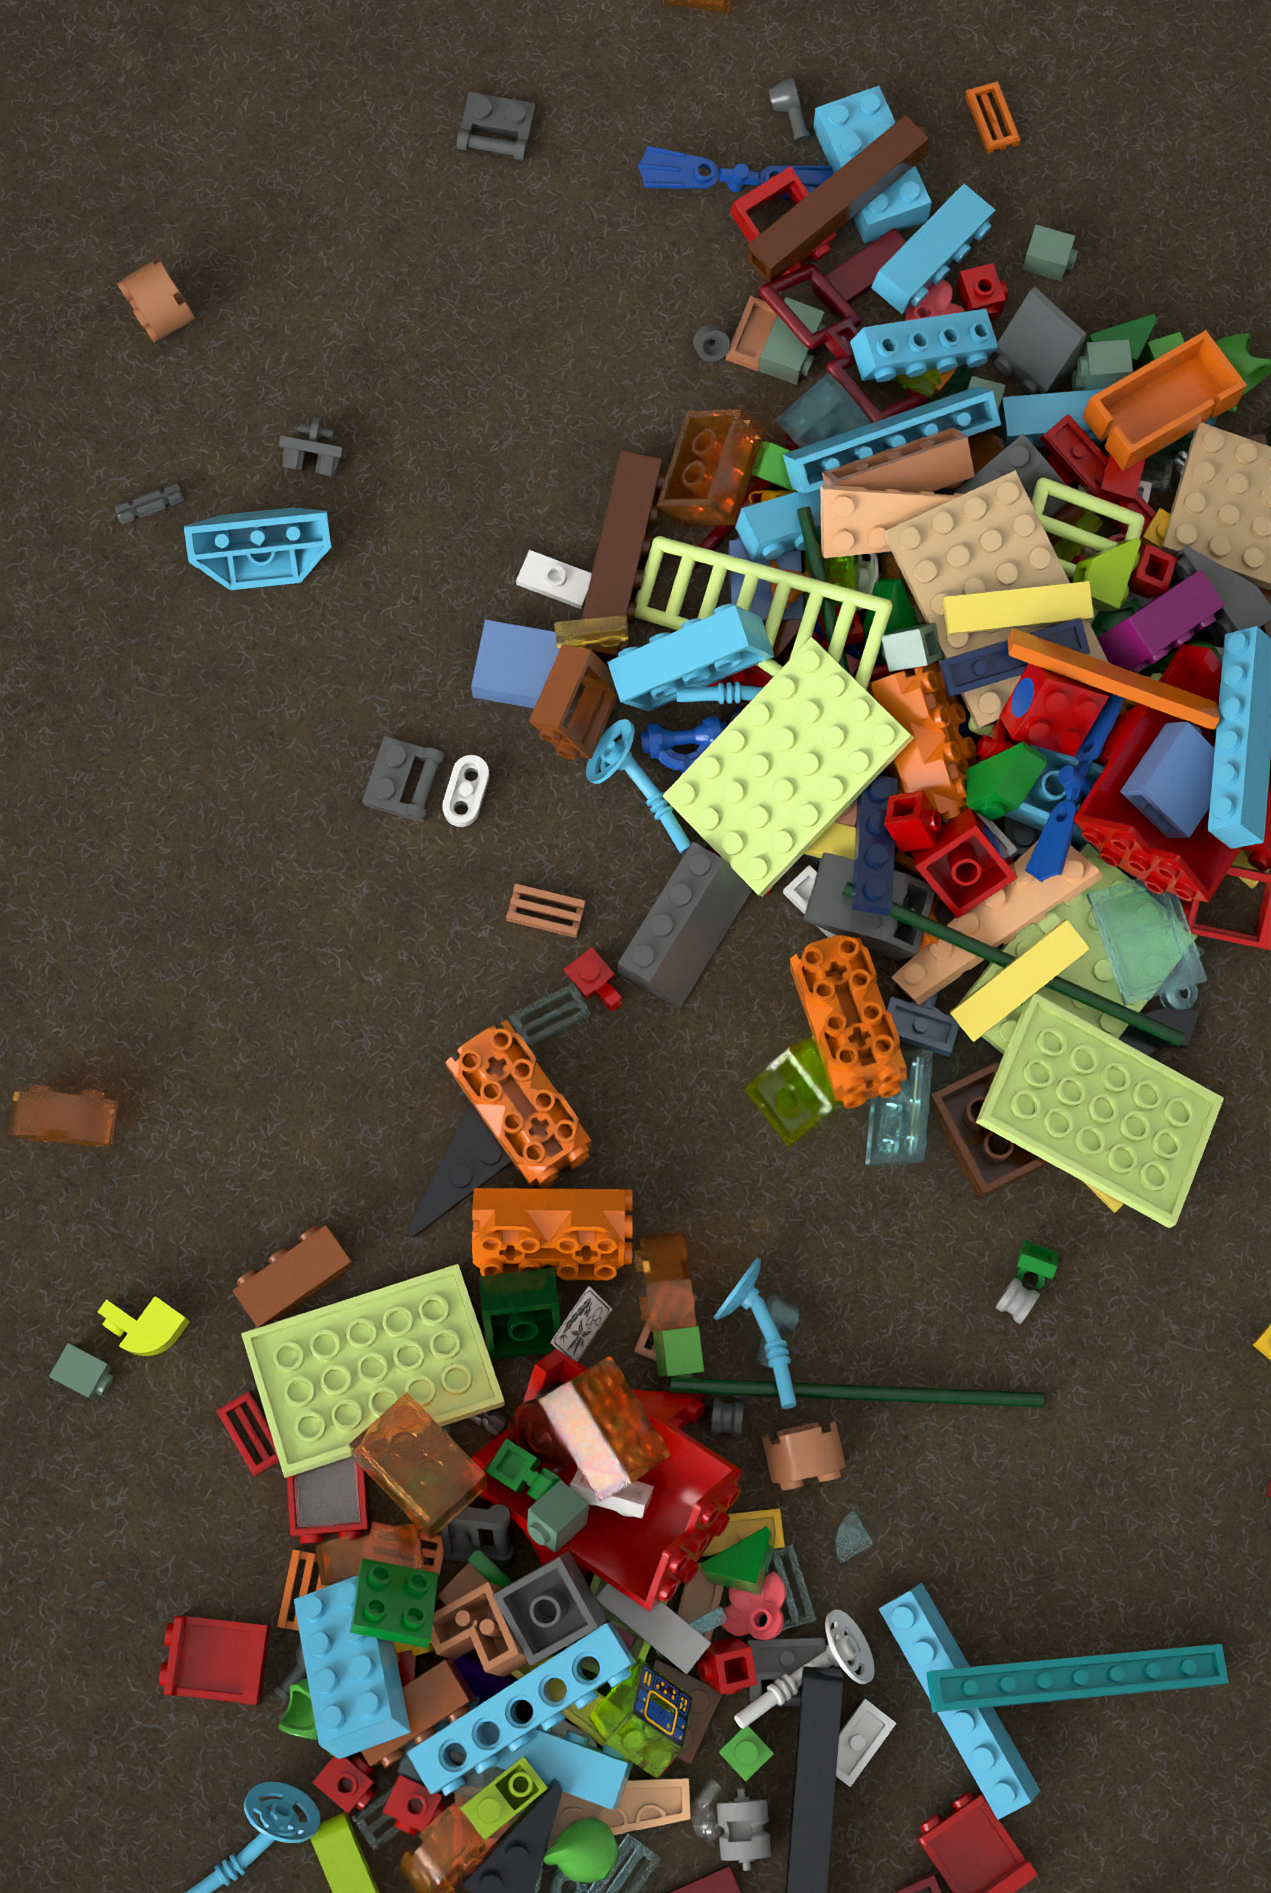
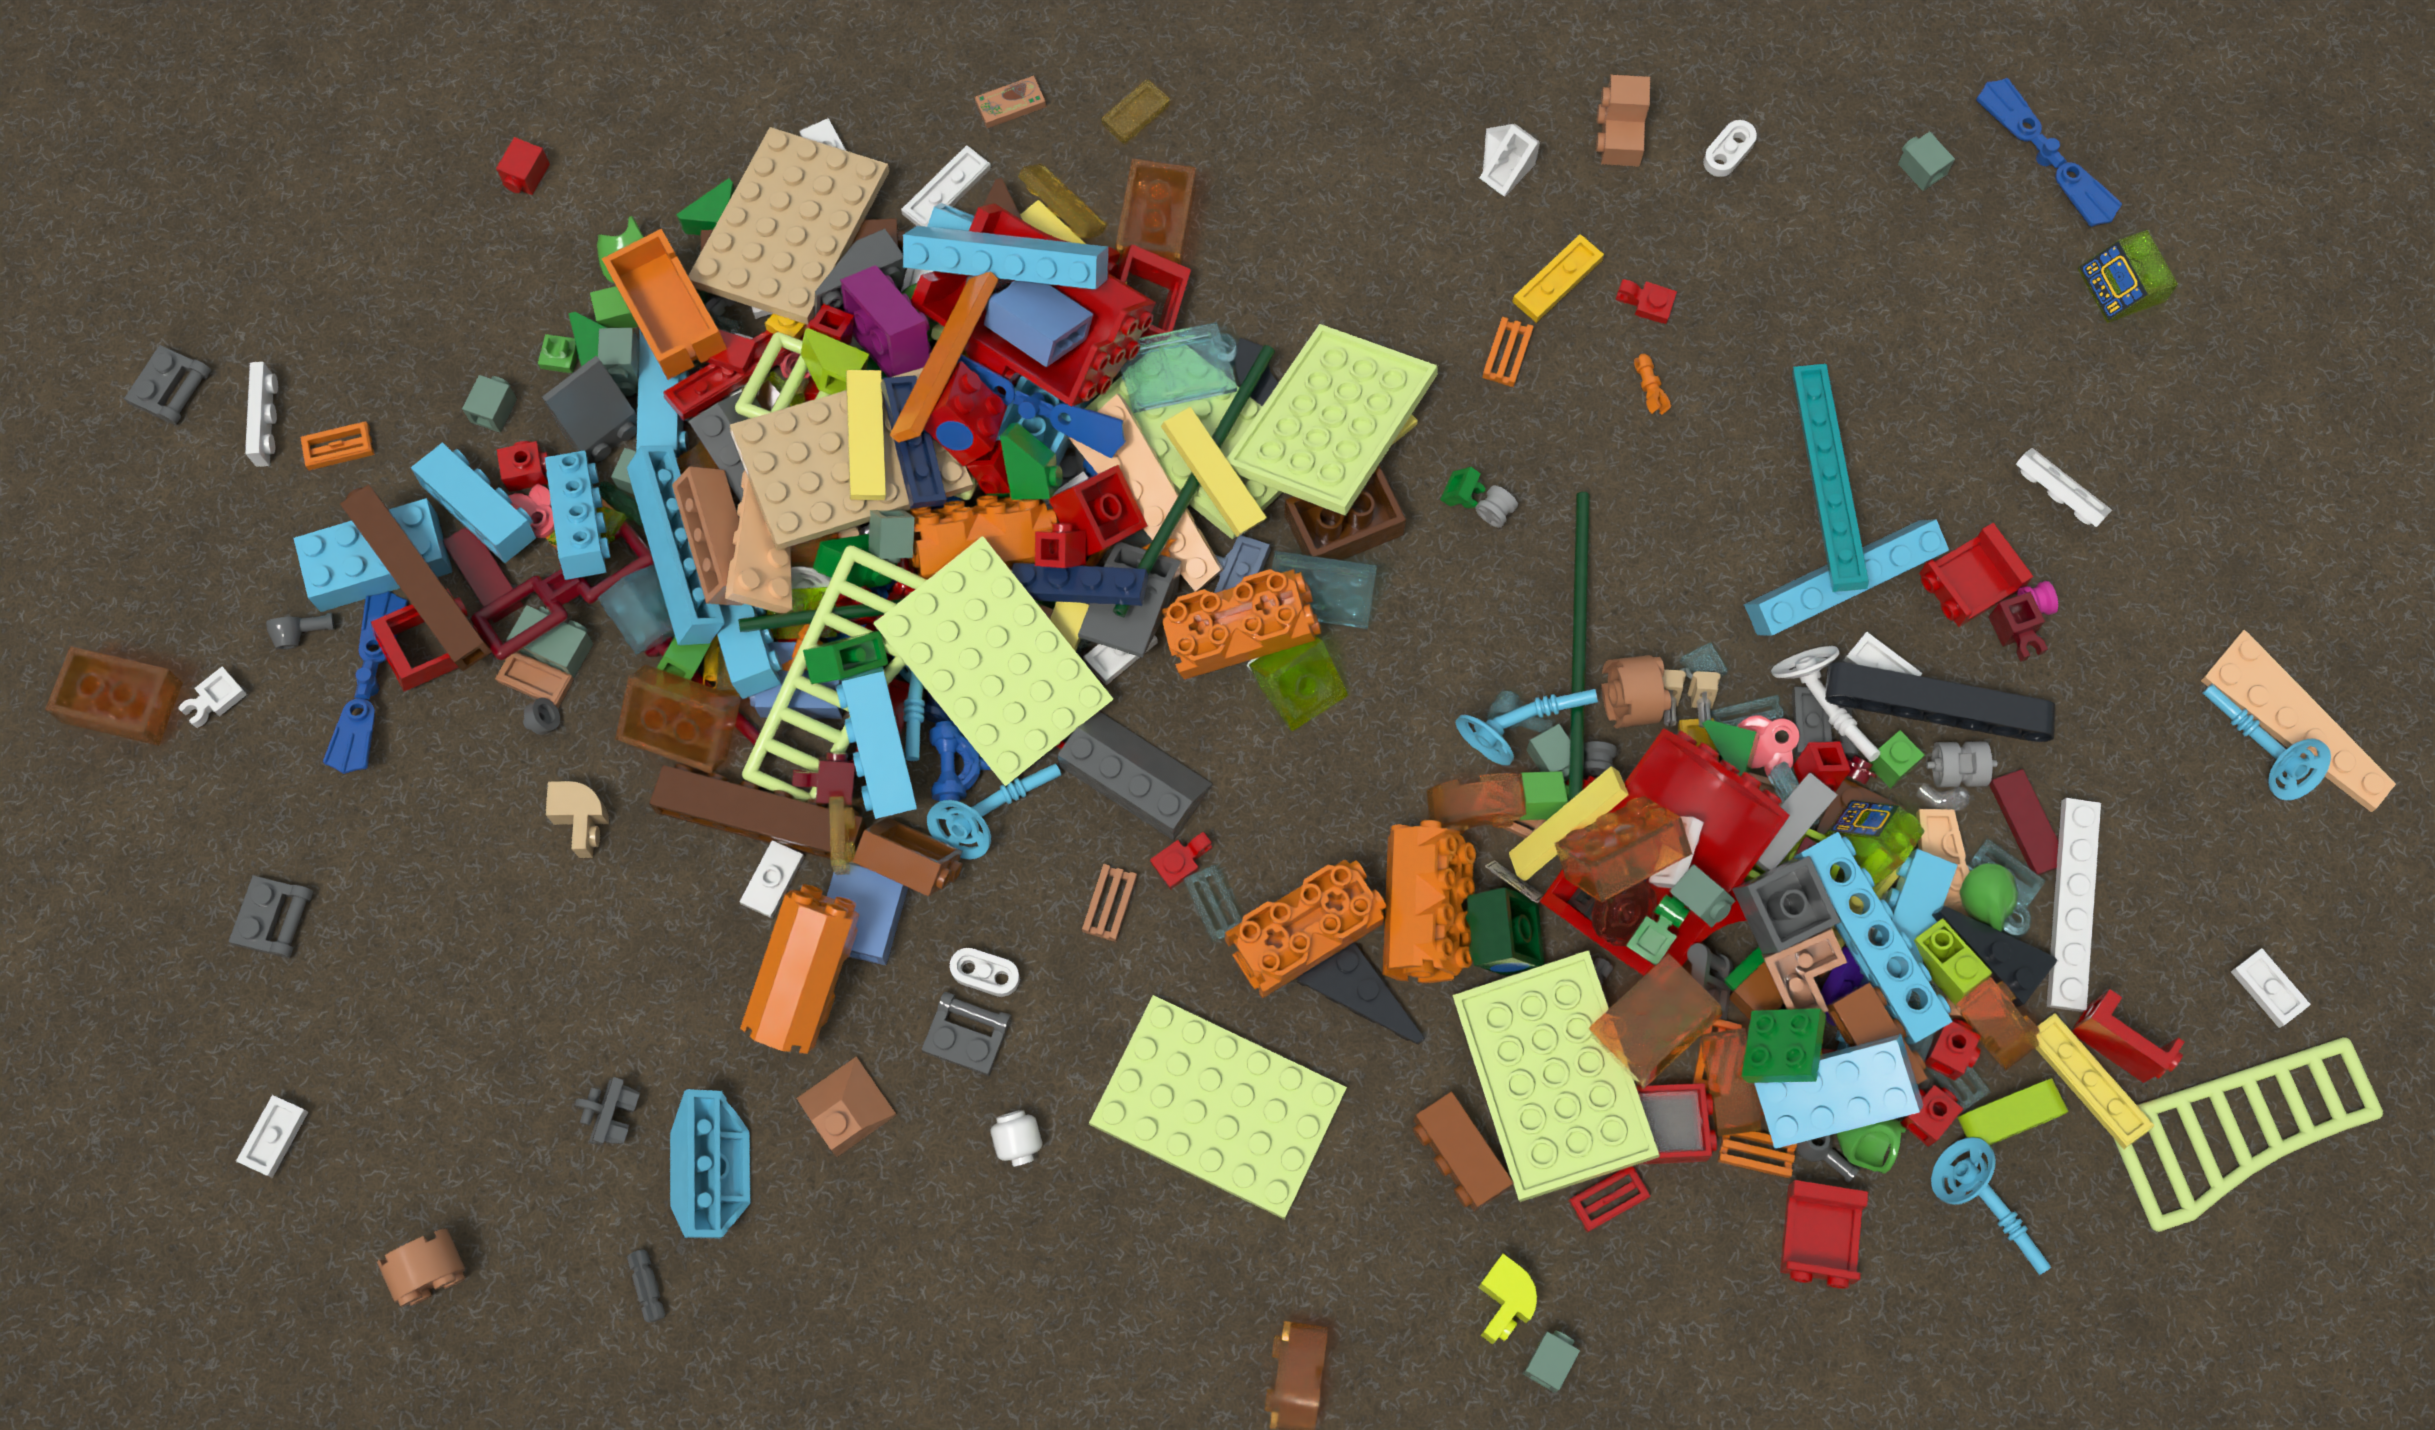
camera: 85 degrees left, 5 degrees down
(282, 156) = (272, 1136): none -> white plate
(297, 832) = (1016, 1137): none -> white head
(324, 668) = (846, 1107): none -> nougat slope
(337, 1031) = (1218, 1106): none -> yellowish green plate
(448, 606) = (801, 969): none -> orange brick
(616, 393) = (579, 806): none -> tan brick
(643, 1376) = (1578, 813): none -> light yellow tile
(653, 616) = (832, 779): none -> dark red brick
(715, 45) = (216, 694): none -> white plate
(729, 1707) = (1860, 769): none -> dark red plate
(731, 1363) = (1551, 751): none -> sand green brick
(773, 614) = (845, 657): none -> green slope
(815, 1533) = (1701, 690): none -> tan piece
(1017, 40) = (260, 414): none -> white plate
(1113, 310) = (558, 354): none -> bright green tile
(1208, 1469) = (1655, 396): none -> orange piece
(1243, 1320) = (1515, 328): none -> orange tile

